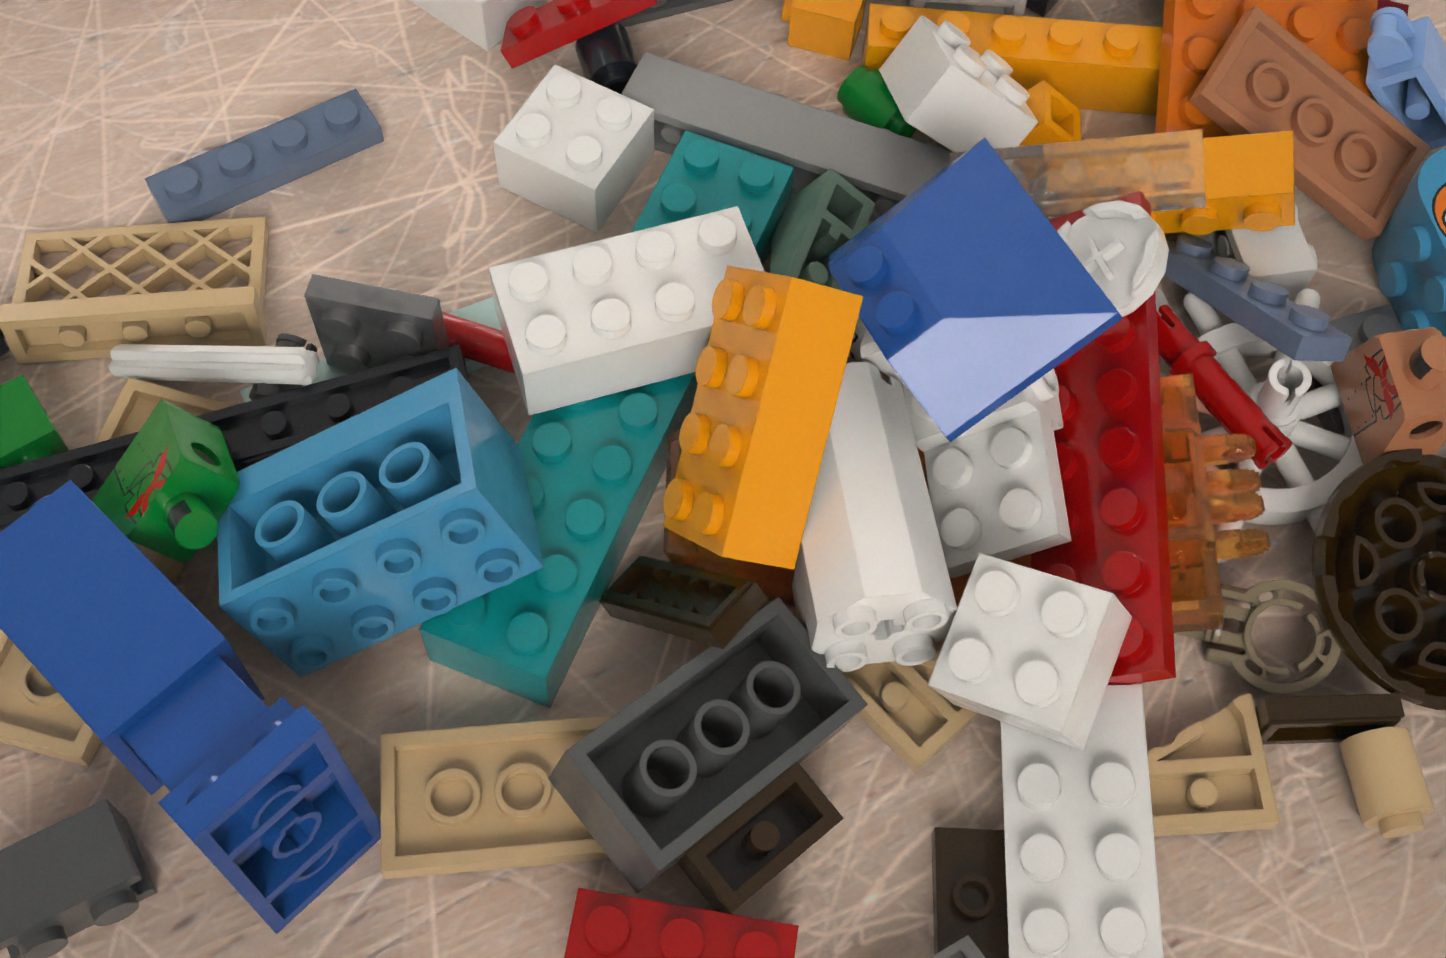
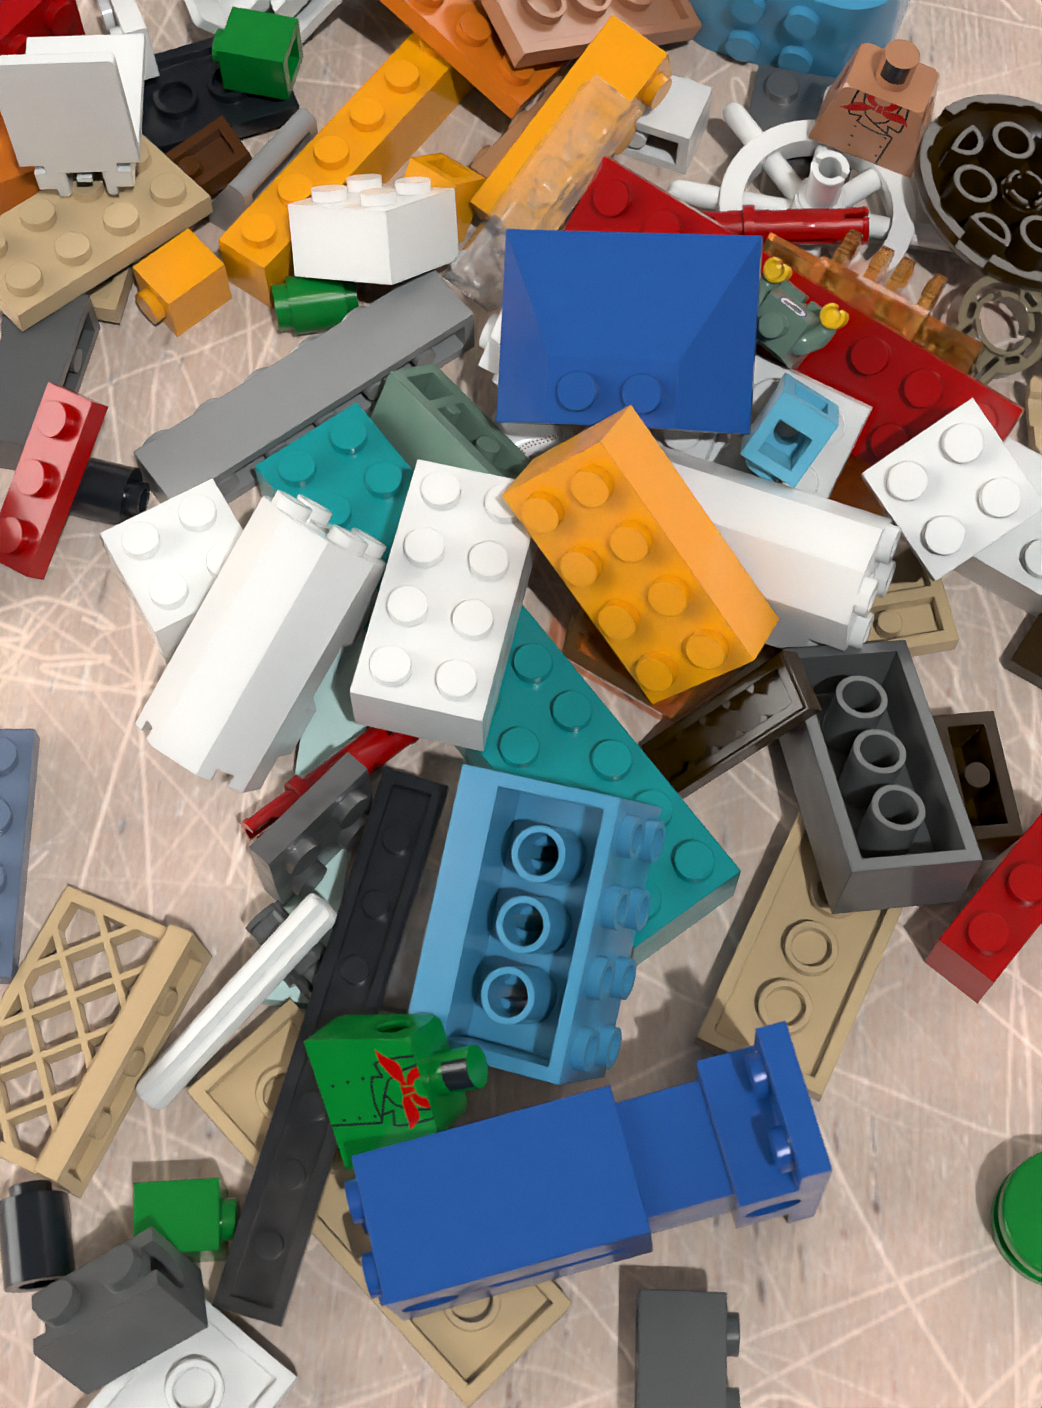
camera: 55 degrees left, 5 degrees up
(513, 201) = (264, 642): none -> white brick
(981, 472) = (789, 457): none -> medium azure brick
(1086, 411) = (786, 323): none -> sand green piece
(1120, 251) = (653, 201): white tile -> none
(1253, 303) = (731, 149): sand blue plate -> none

